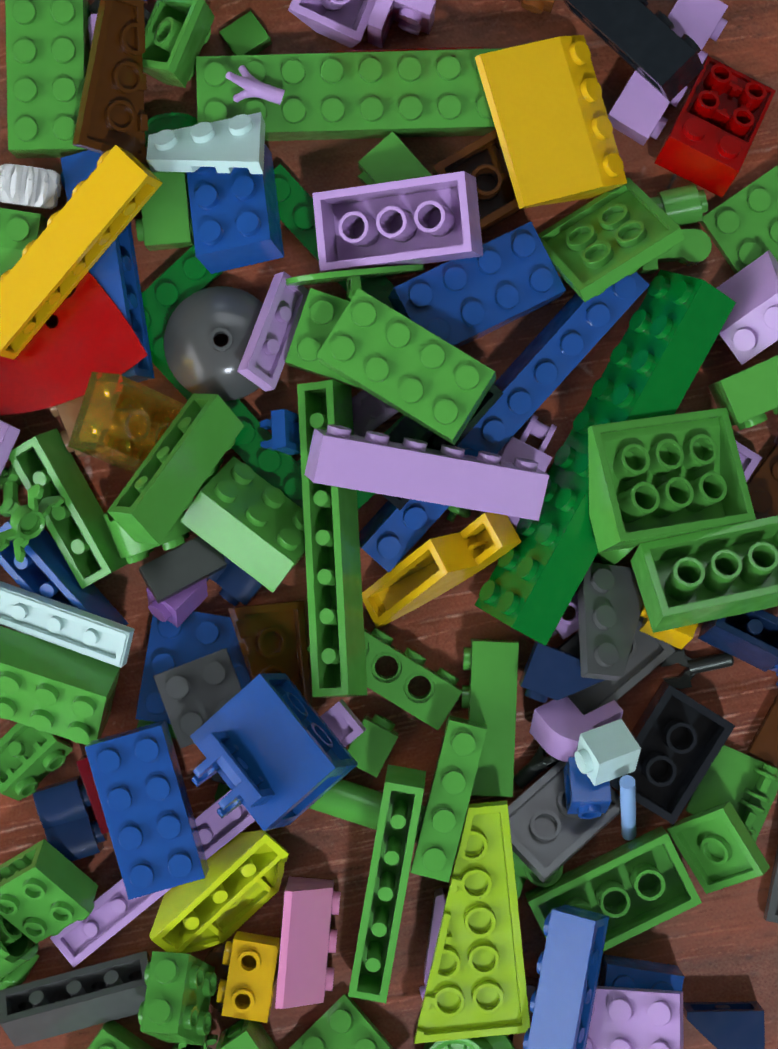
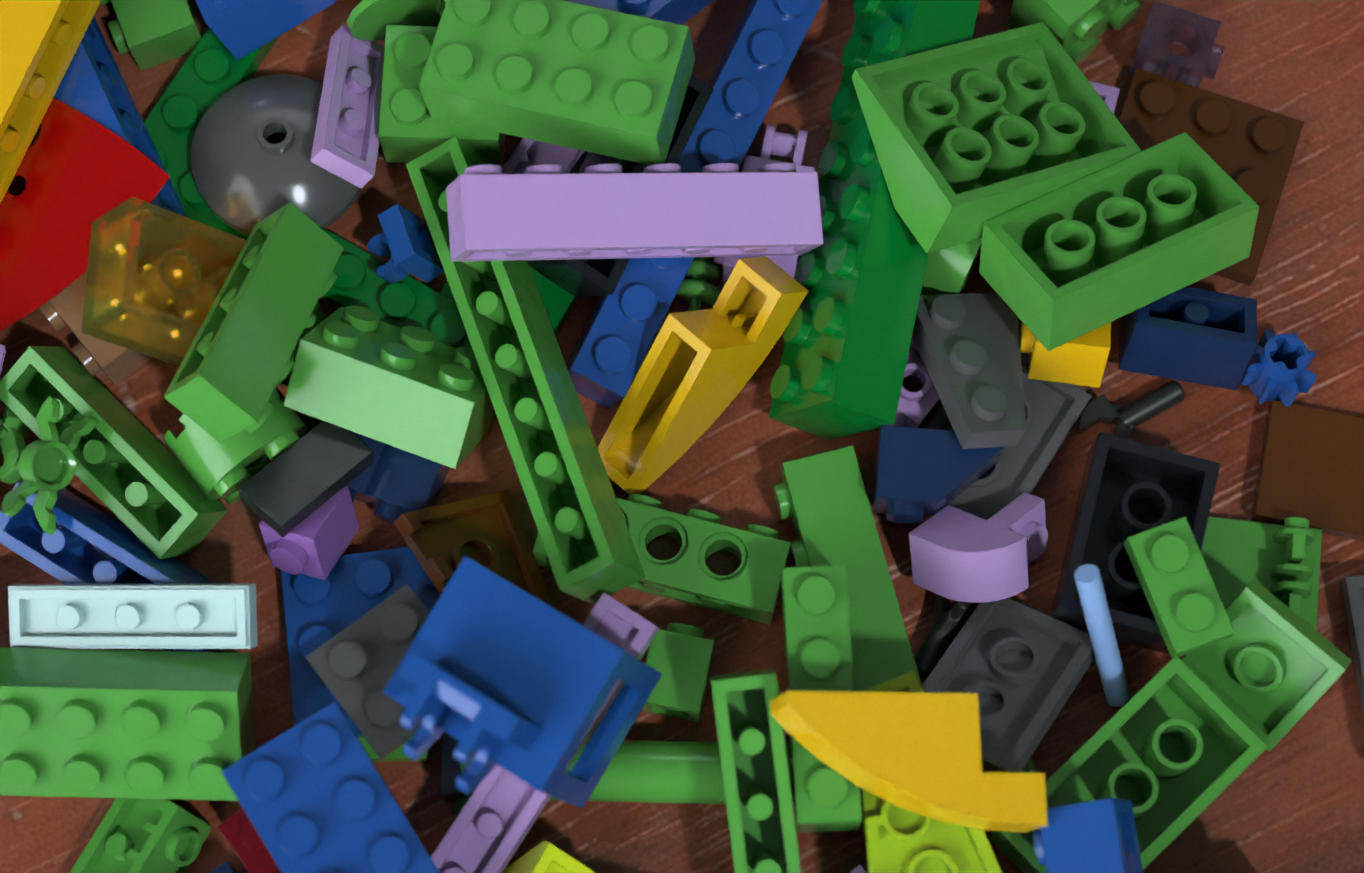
camera: 20 degrees left, 15 degrees down
(492, 859) = (914, 754): none -> yellow slope
(582, 795) = (1028, 621): blue brick -> none
(607, 752) = (1040, 548): light aqua brick -> none
(682, 795) = (1178, 587): none -> bright green plate

